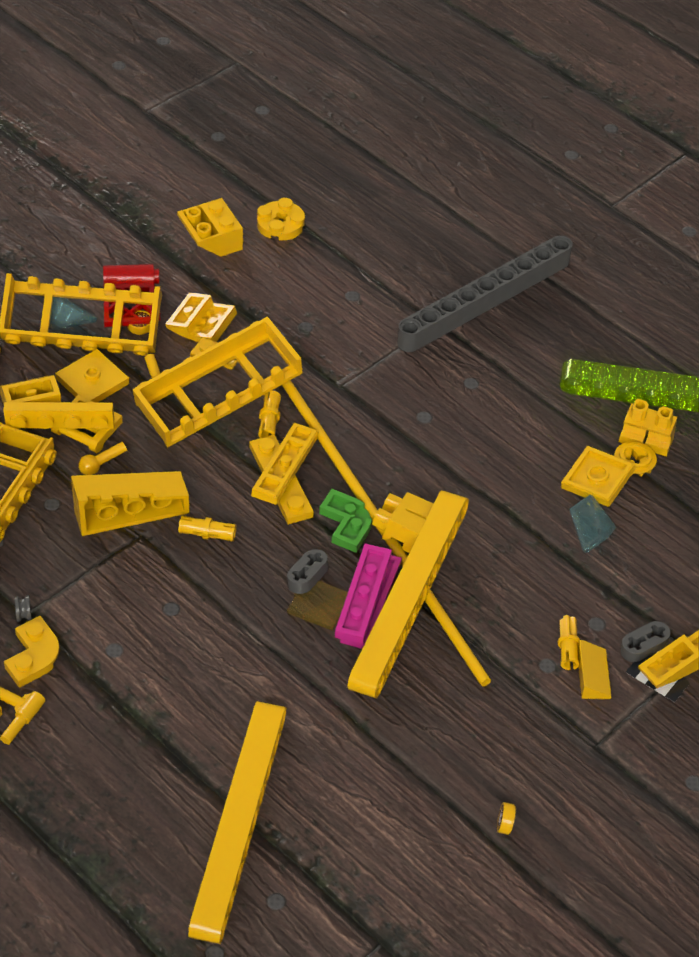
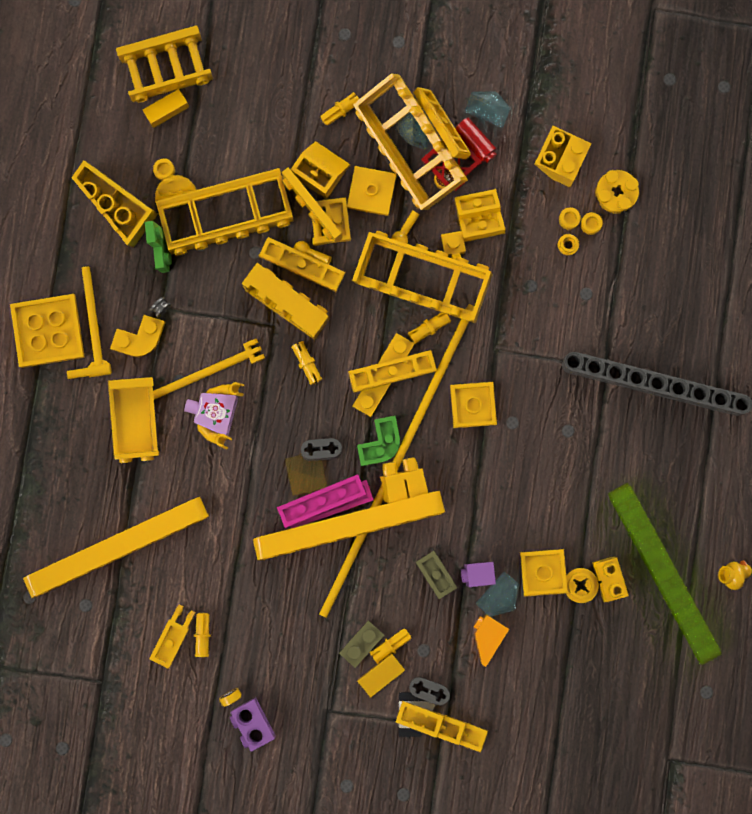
camera: 55 degrees right, 35 degrees up
(95, 708) = (248, 353): none -> yellow hinge
(110, 253) = (488, 106): none -> clear light blue slope
(113, 702) = (133, 419): none -> yellow panel
(121, 281) = (442, 124): none -> yellow plate
(129, 460) = (302, 264): none -> yellow plate
(181, 628) = (215, 412): none -> torso
(271, 263) = (569, 218): none -> yellow tile
(291, 252) = (591, 223): none -> yellow tile
(294, 276) = (568, 238): none -> yellow plate
(379, 429) = (473, 405): none -> yellow plate
(391, 833) = (171, 639): none -> yellow hinge
(412, 802) = (202, 635): none -> yellow axle
(525, 559) = (436, 575): none -> olive plate
(545, 668) = (361, 644): none -> olive plate
(555, 809) = (258, 722): none -> medium lavender brick
(556, 514) = (478, 574): none -> medium lavender brick
(629, 556) = (488, 637): none -> light orange slope

